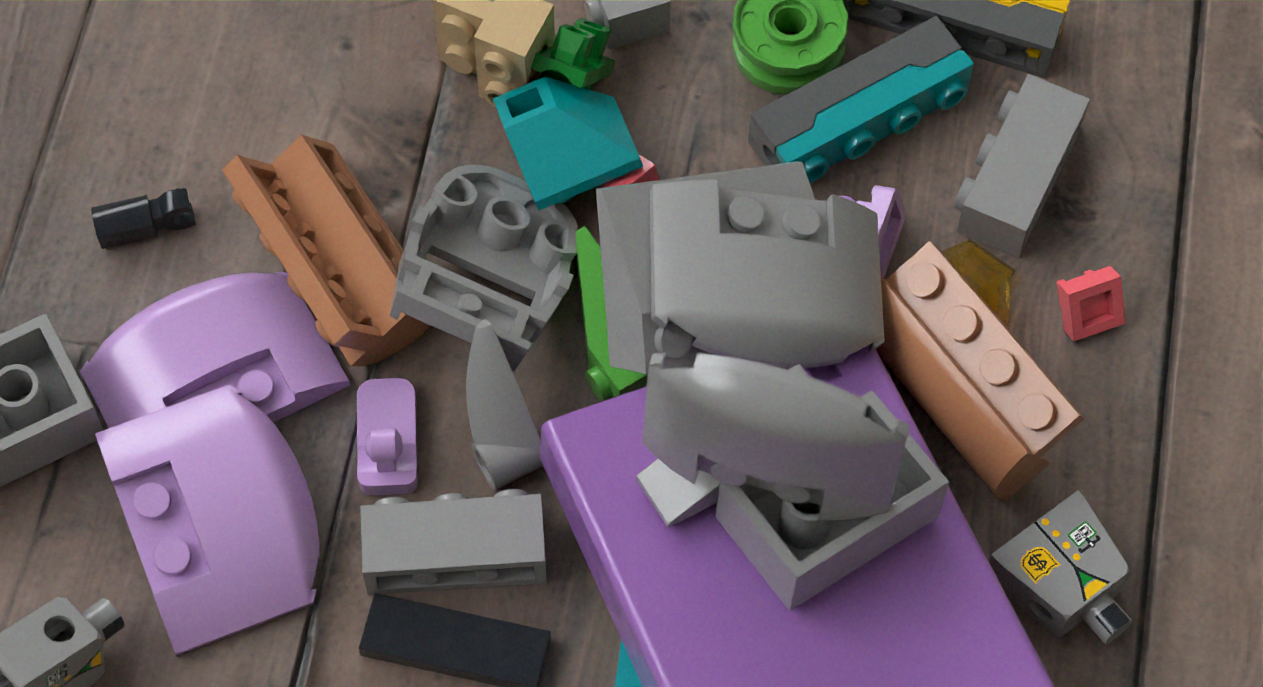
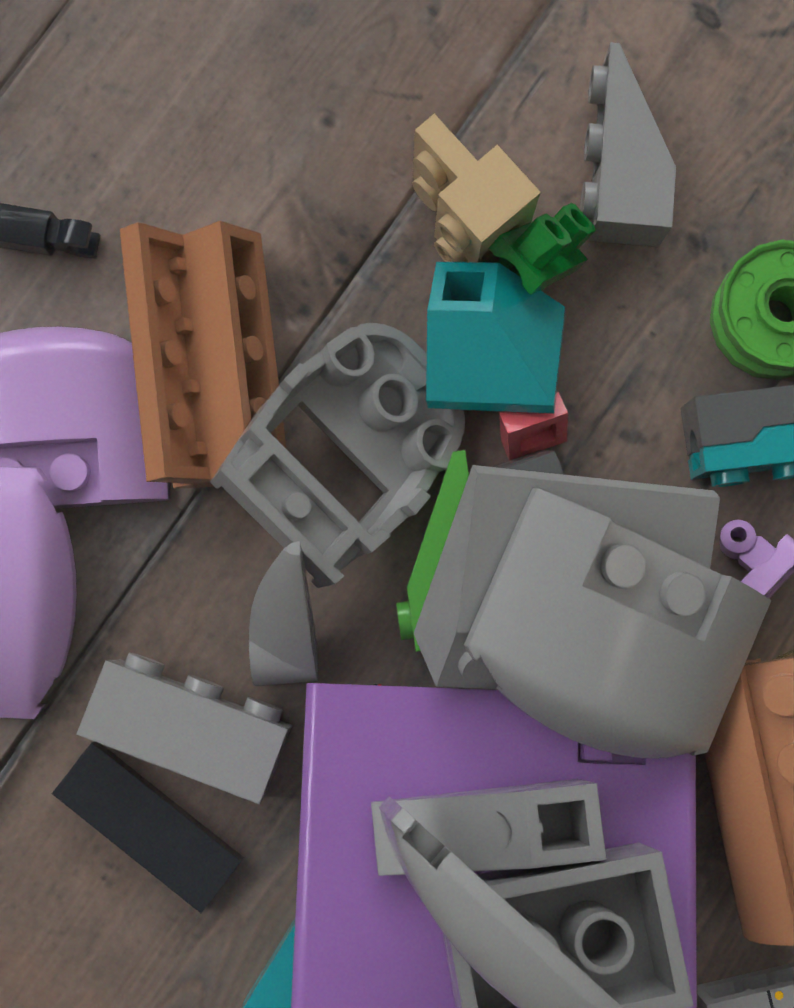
camera: 25 degrees right, 20 degrees up
(387, 437) = (178, 576): lavender piece -> none

